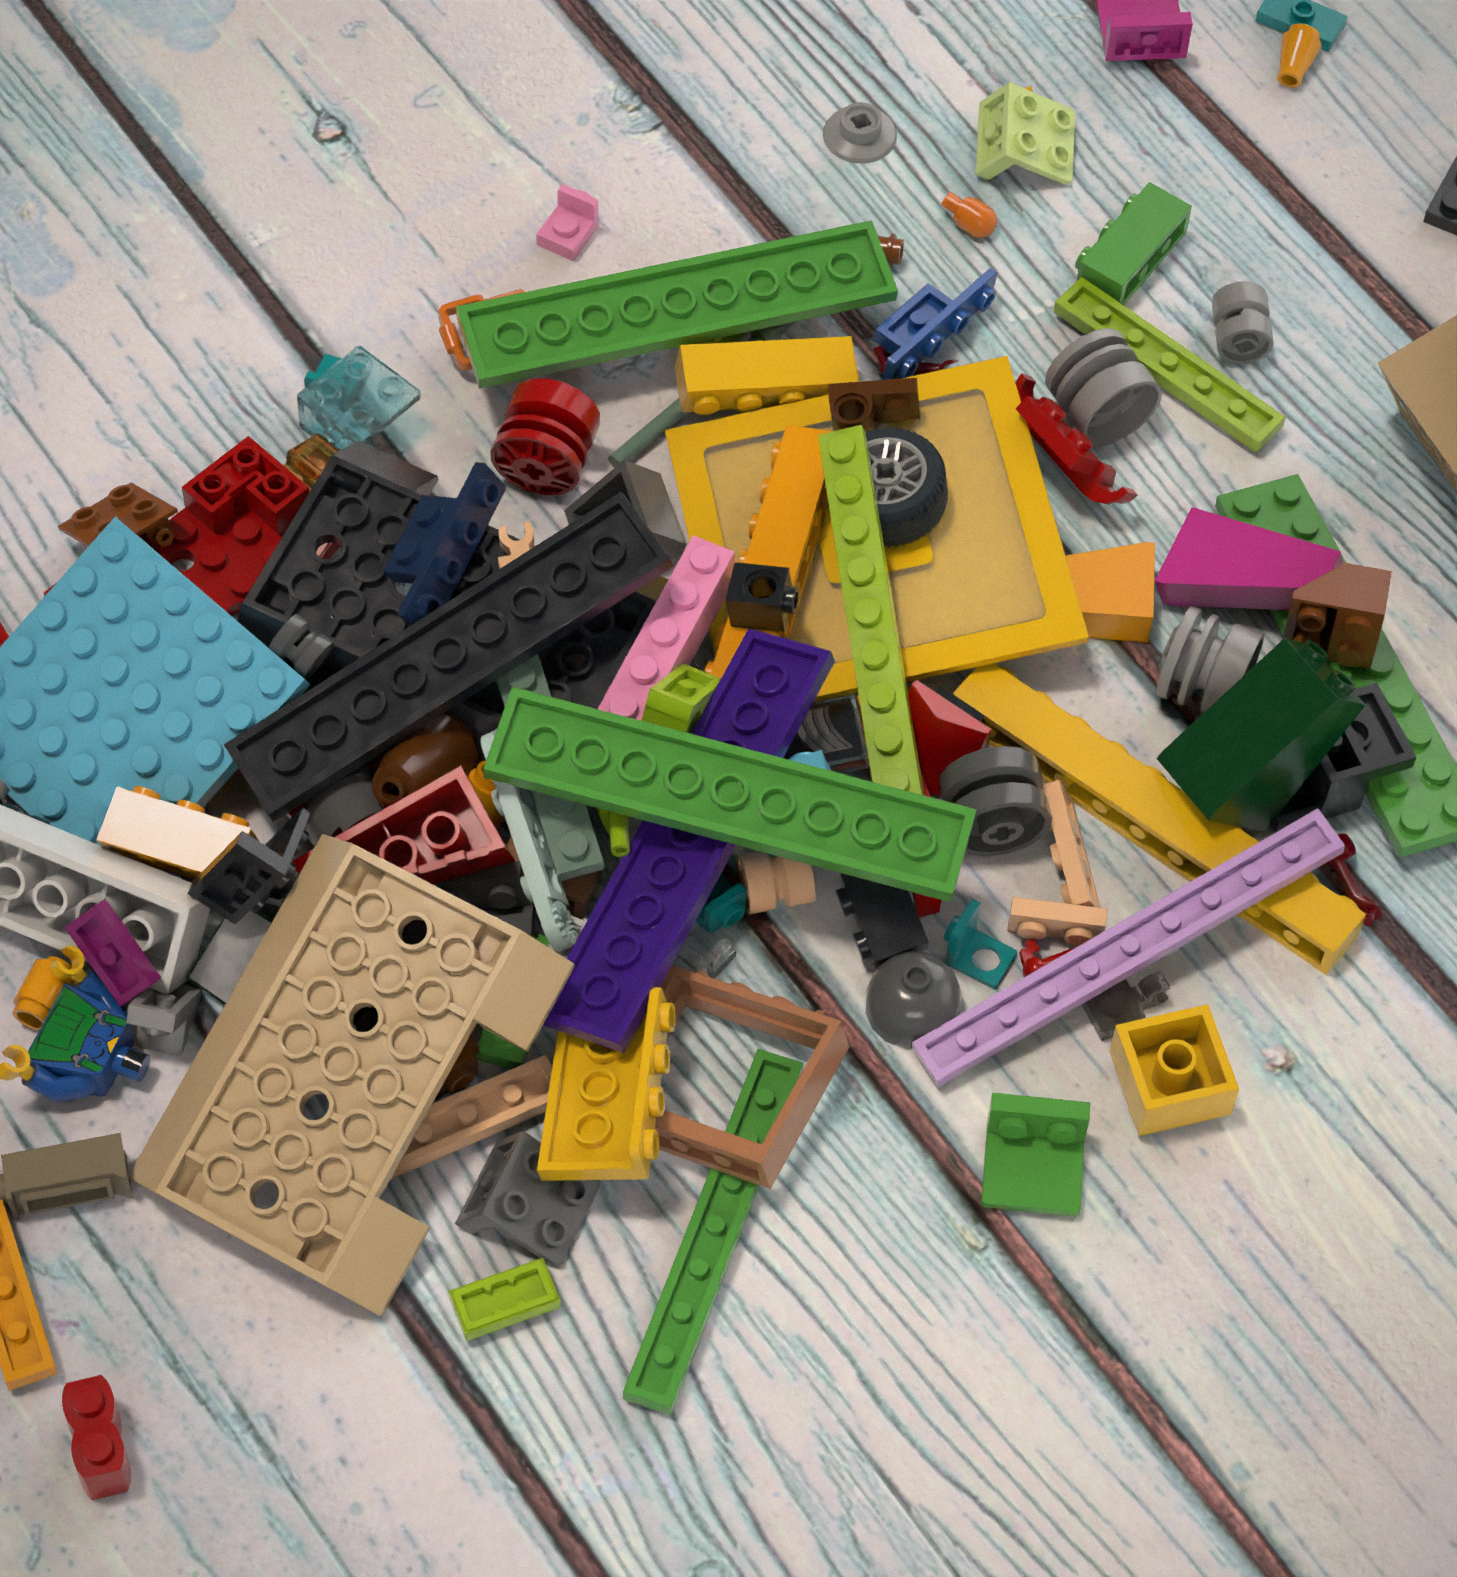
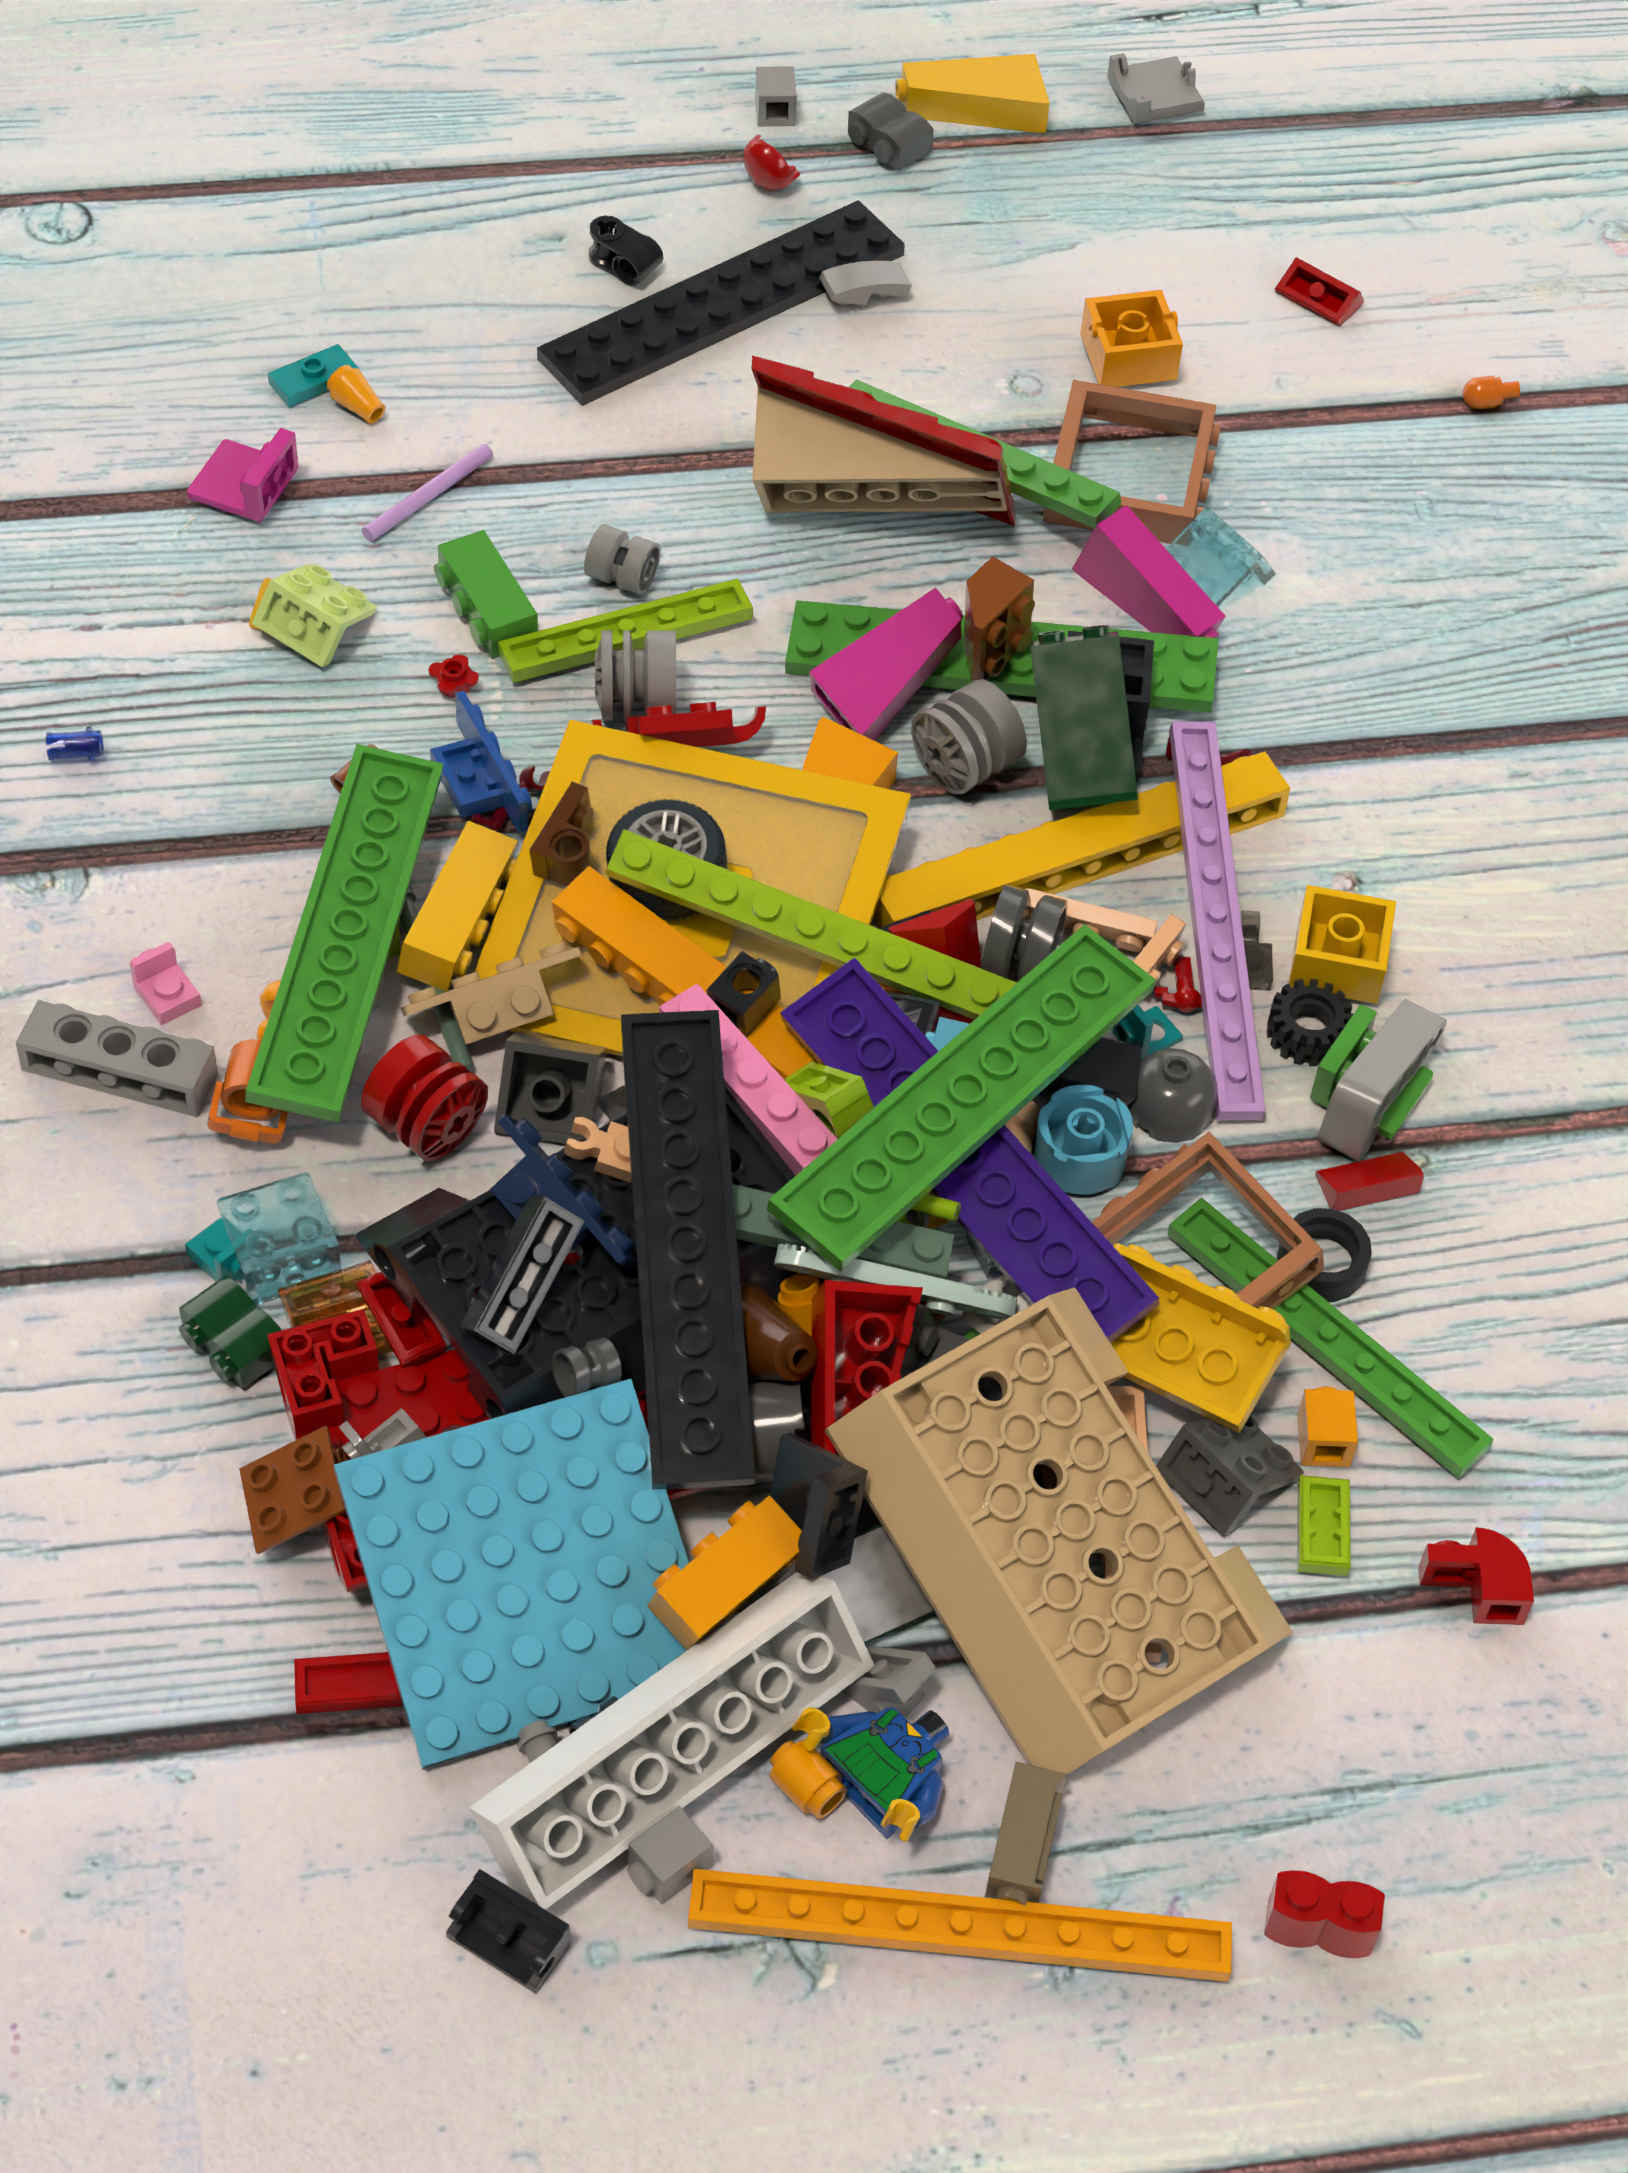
camera: 65 degrees left, 5 degrees down
(112, 952) = (825, 1680): magenta plate -> none
(195, 563) = (393, 1432): none -> light grey bracket
(259, 410) = (230, 1331): none -> dark green brick
(349, 554) = (522, 1273): none -> black slope
(474, 222) = (117, 1057): none -> light grey brick
(522, 1462) = (1490, 1567): none -> red brick
(610, 1261) = (1327, 1427): none -> light orange brick
(682, 445) = (498, 1001): none -> tan bracket
(779, 59) = (77, 744): none -> clear blue pin
(804, 940) = (1083, 1139): none -> medium azure brick
(809, 1227) = (1351, 1236): none -> black tyre
(861, 145) = (209, 729): light grey piece -> none
(919, 1203) = (1370, 1181): none -> red slope
(971, 215) = (368, 689): orange cylinder -> none
(1028, 266) = (453, 675): none -> red plate
(1036, 1156) = (1379, 1078): none -> light grey beam
(1077, 1058) = (1312, 1002): none -> black tyre
(1228, 157) = (427, 492): none -> lavender bar

